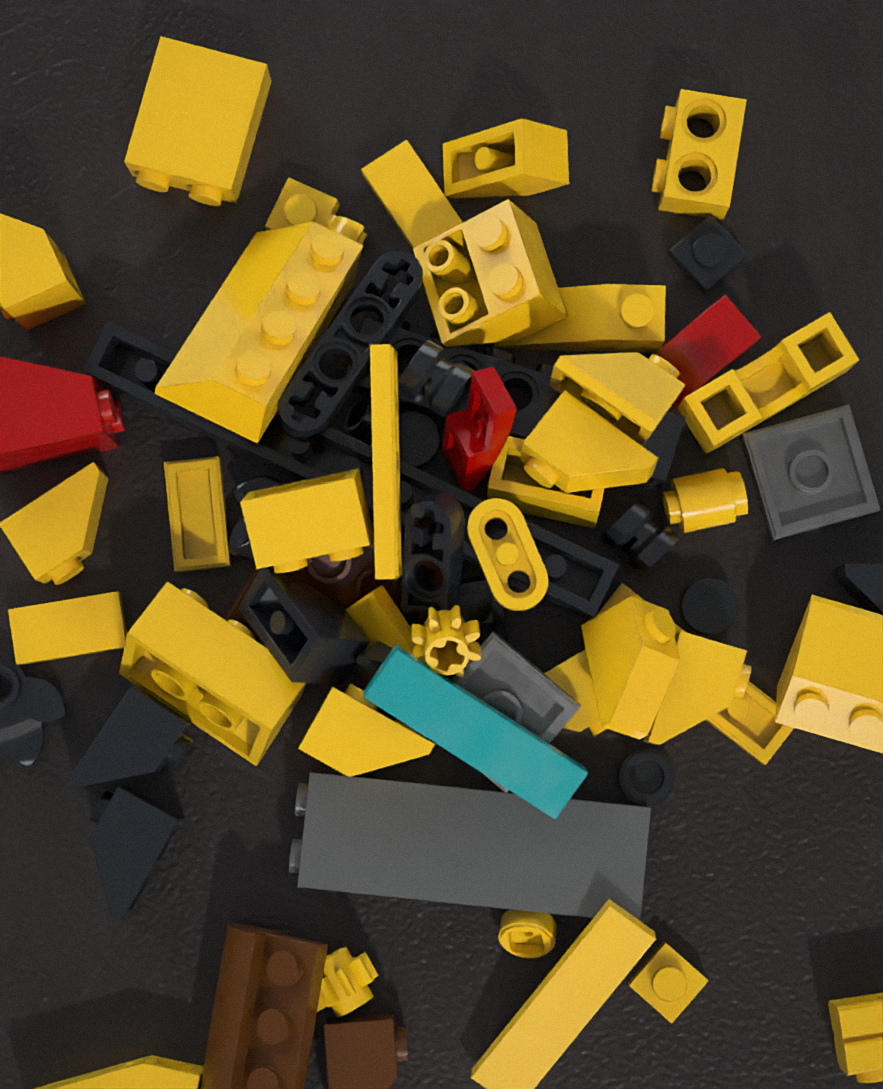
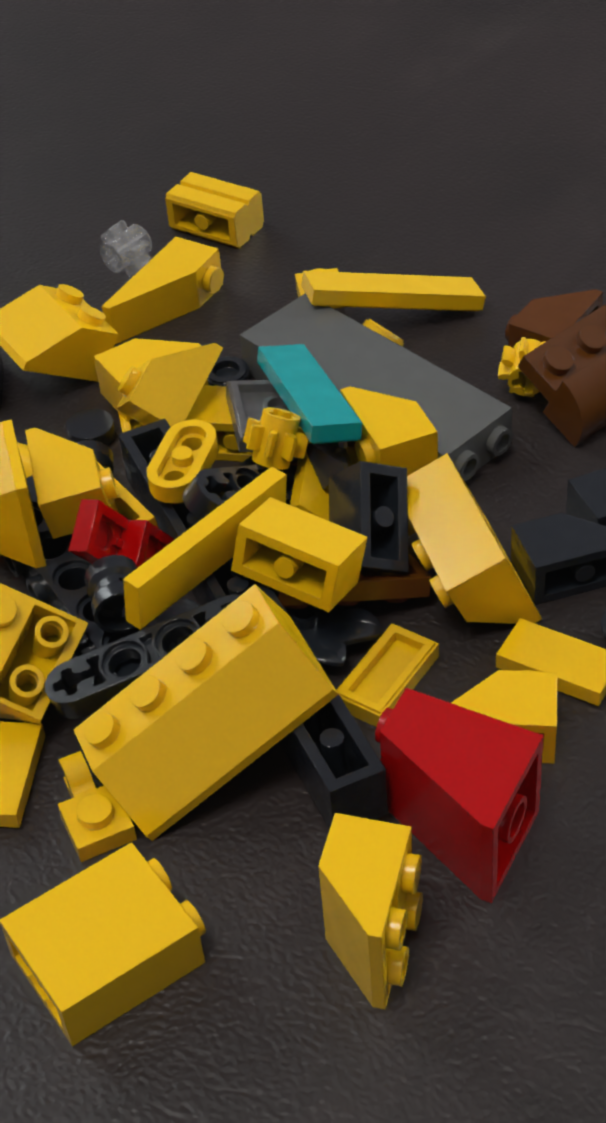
camera: 140 degrees left, 40 degrees down
(819, 862) = (165, 288): none -> yellow slope

